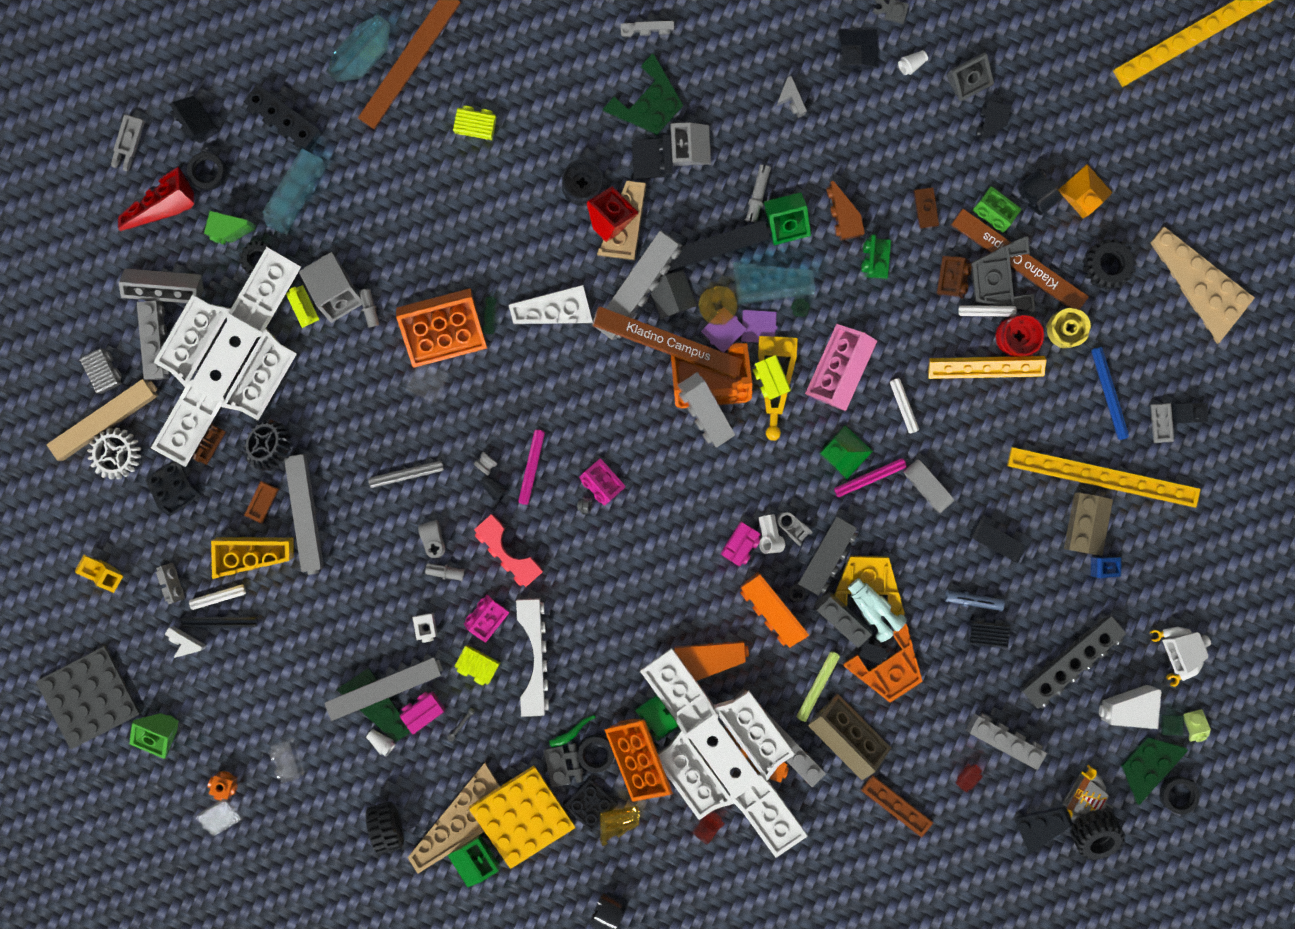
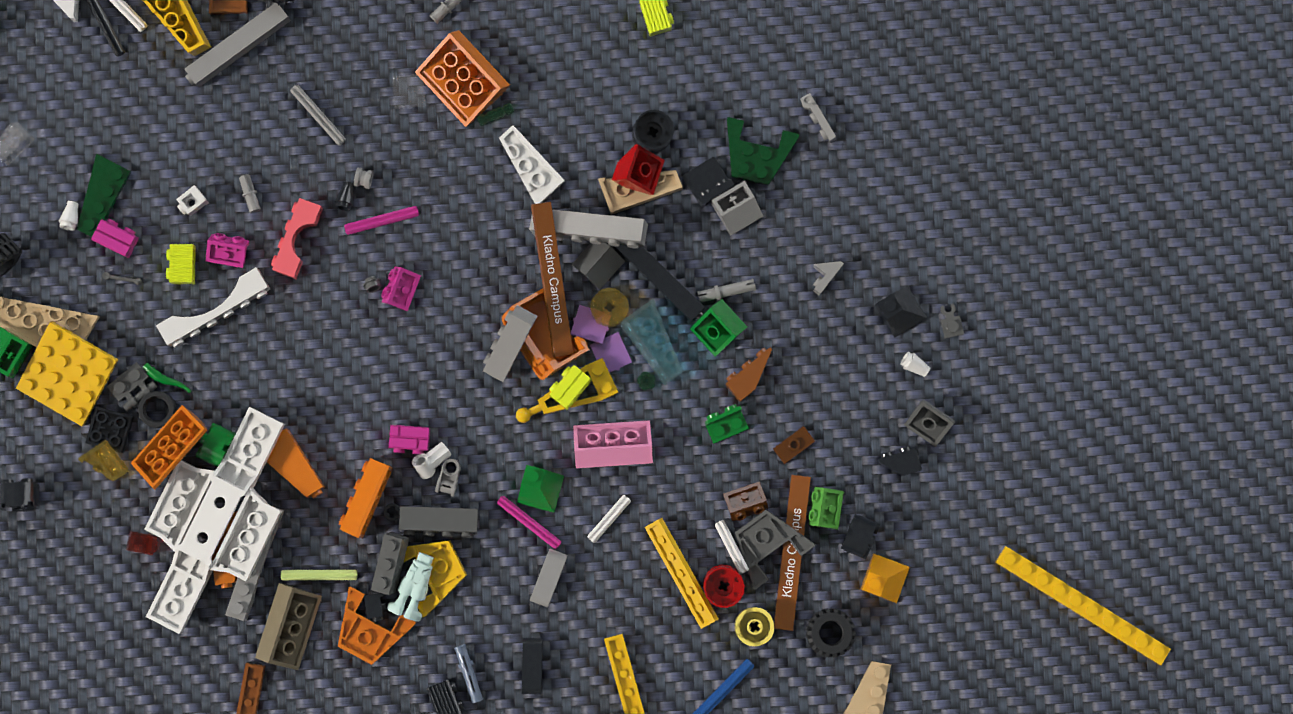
camera: 60 degrees right, 5 degrees down
(383, 688) = (118, 192): light grey brick -> none
(432, 535) = (274, 165): light grey piece -> none

